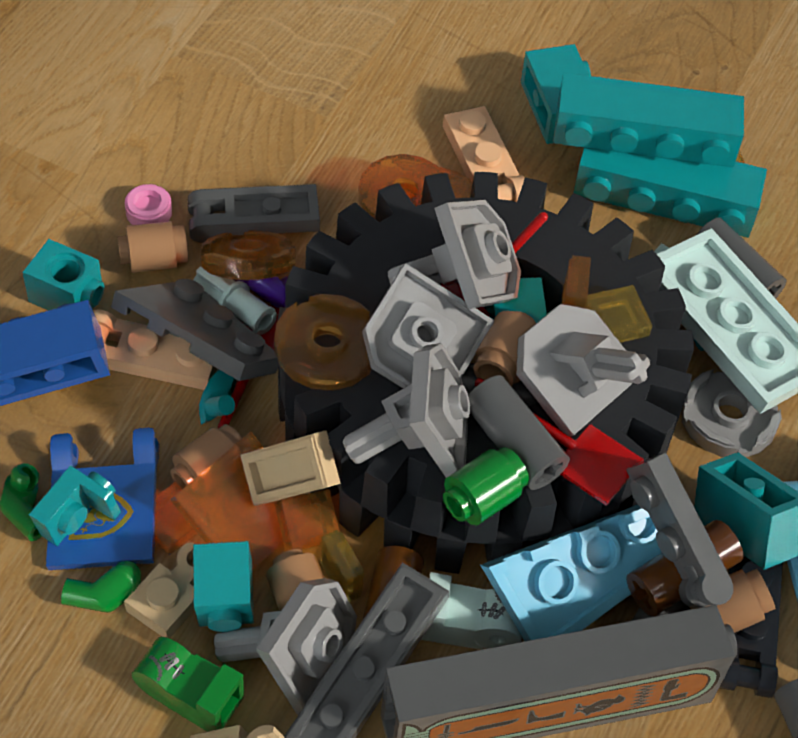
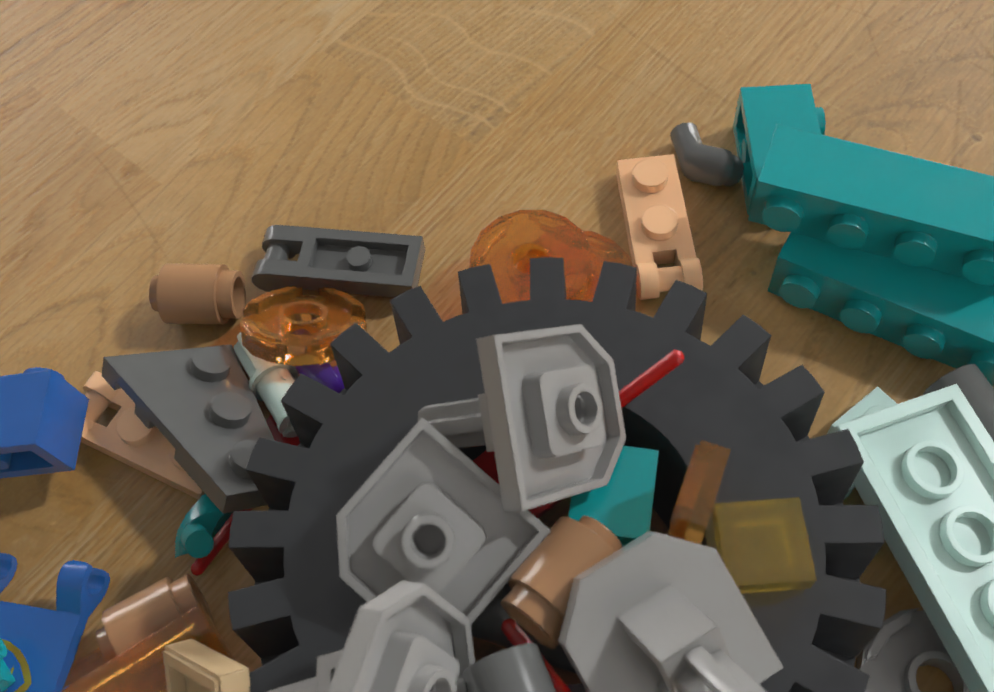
camera: 25 degrees right, 5 degrees up
(62, 277) = (75, 323): teal brick -> none
(148, 205) = (220, 237): bright pink tile -> none
(318, 365) = (255, 494): clear orange tile -> none
(507, 110) = (703, 162): none -> dark grey arm

